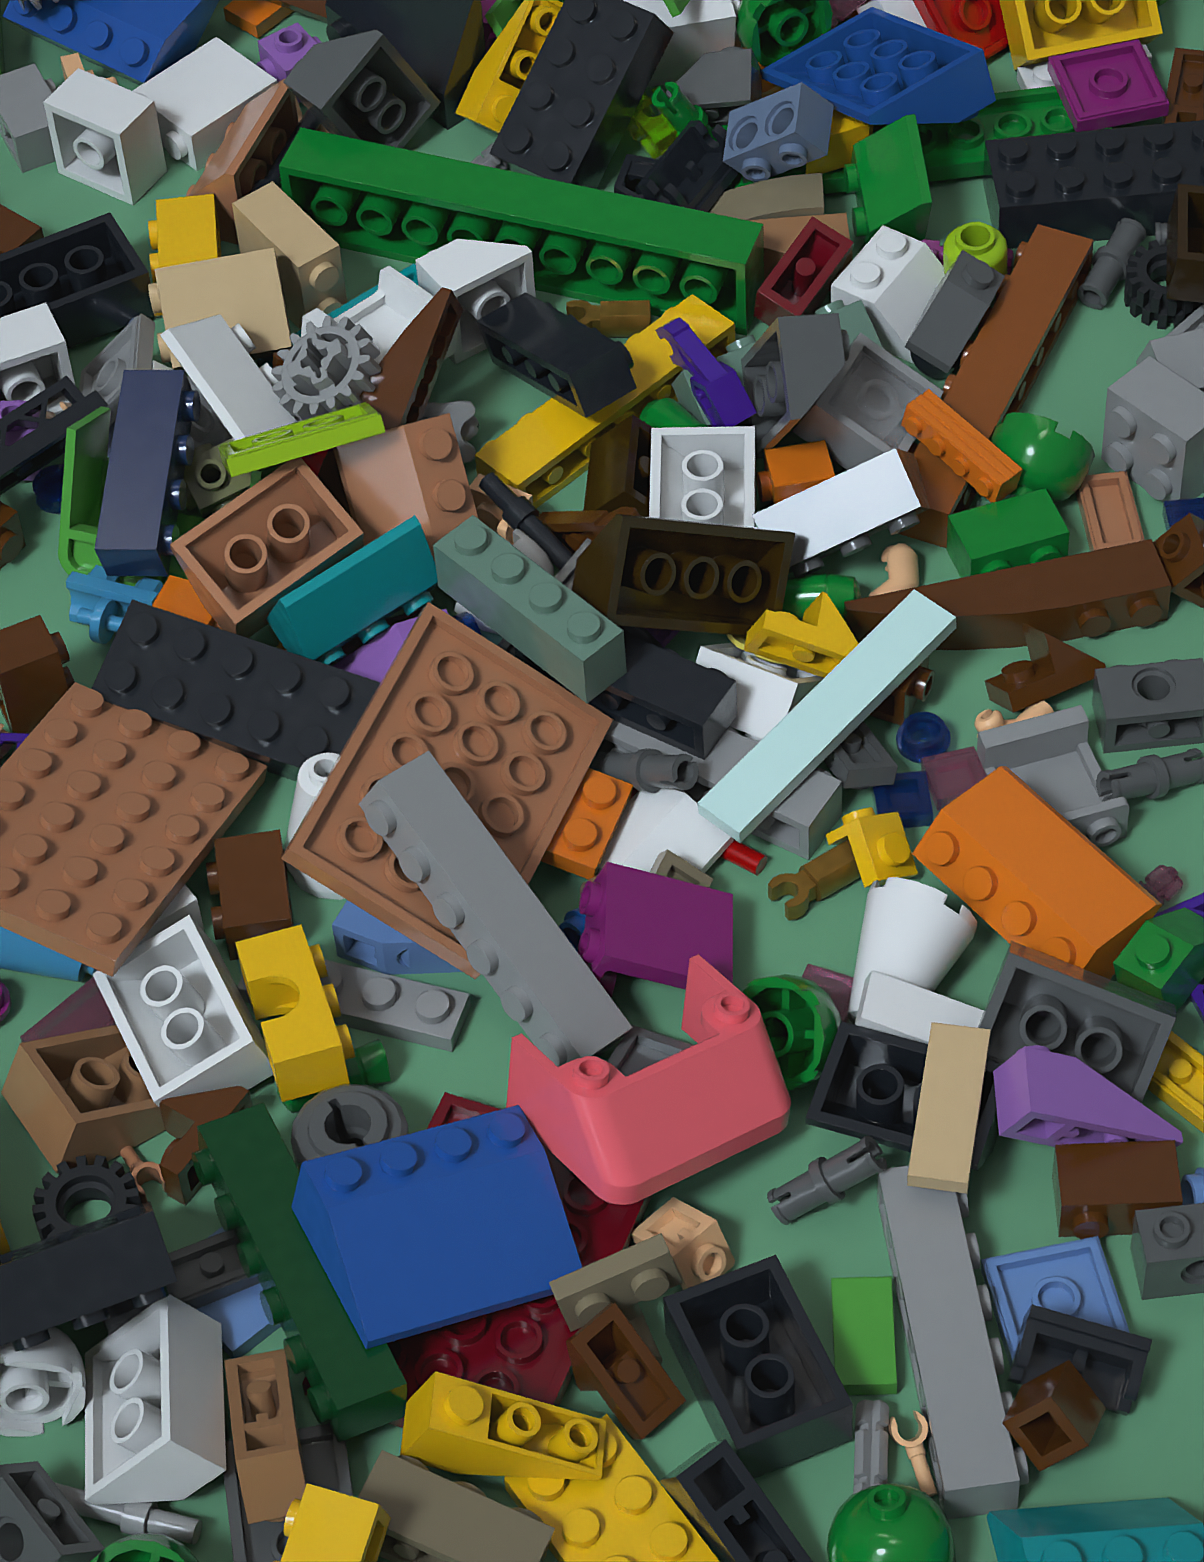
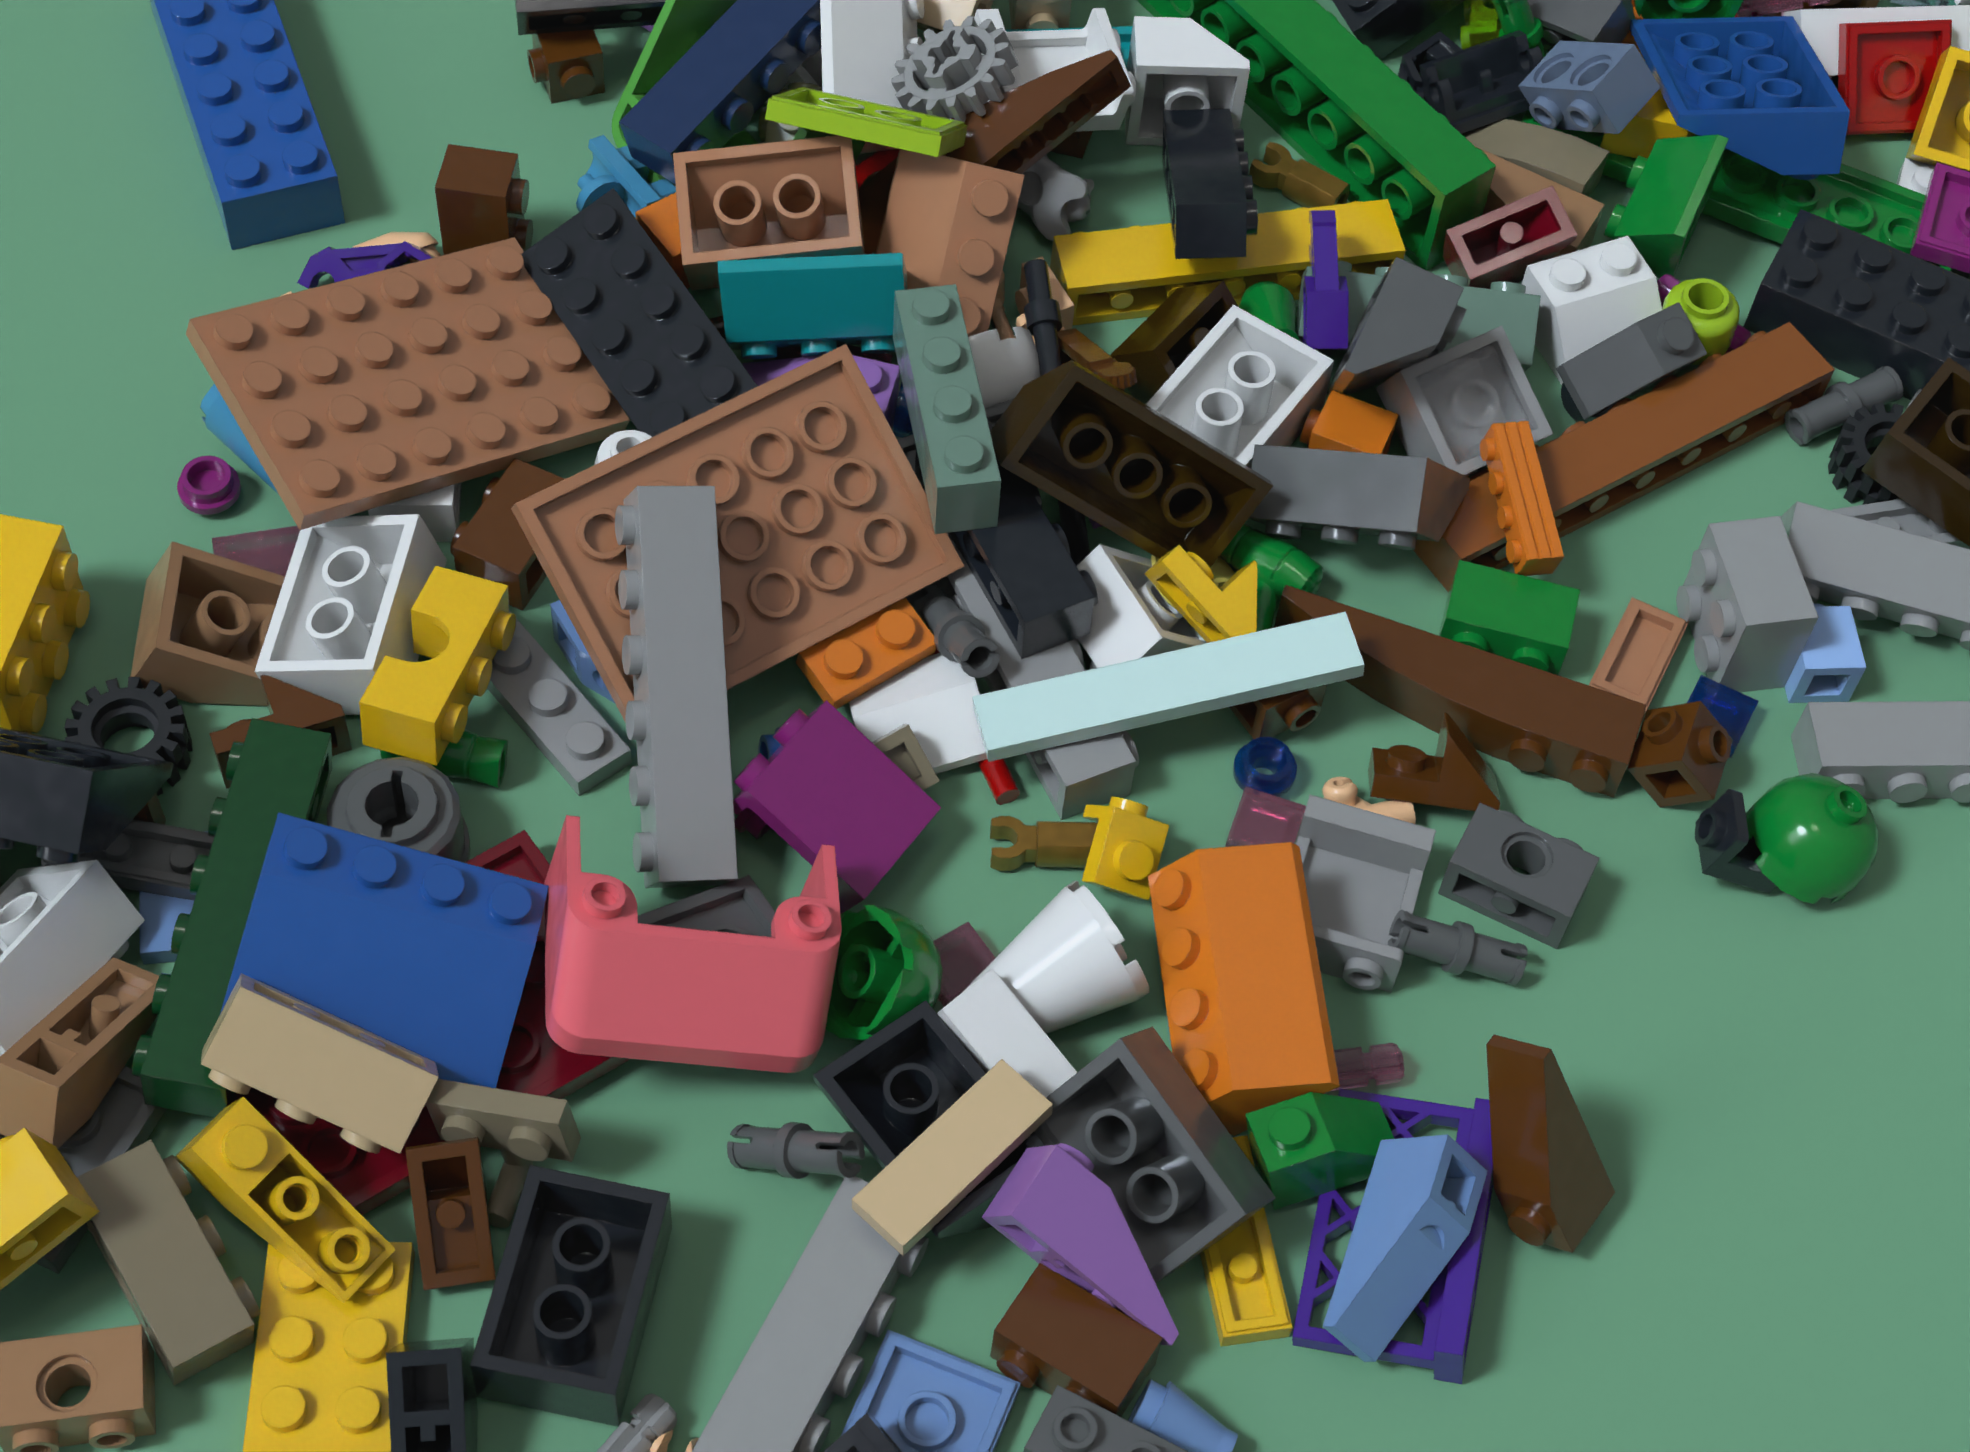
camera: 25 degrees right, 5 degrees up
(142, 1170) = (199, 734): nougat hand -> none
(464, 1322) = (318, 1066): none -> tan brick
(692, 1240) = (620, 1126): light nougat bracket -> none
(862, 761) = (1178, 751): dark grey plate -> none
(864, 1335) = (714, 1330): bright green tile -> none
(901, 569) = (1380, 589): light nougat arm -> none
(908, 796) = (1197, 815): clear blue tile -> none
(1044, 455) = (1601, 558): green cylinder -> none

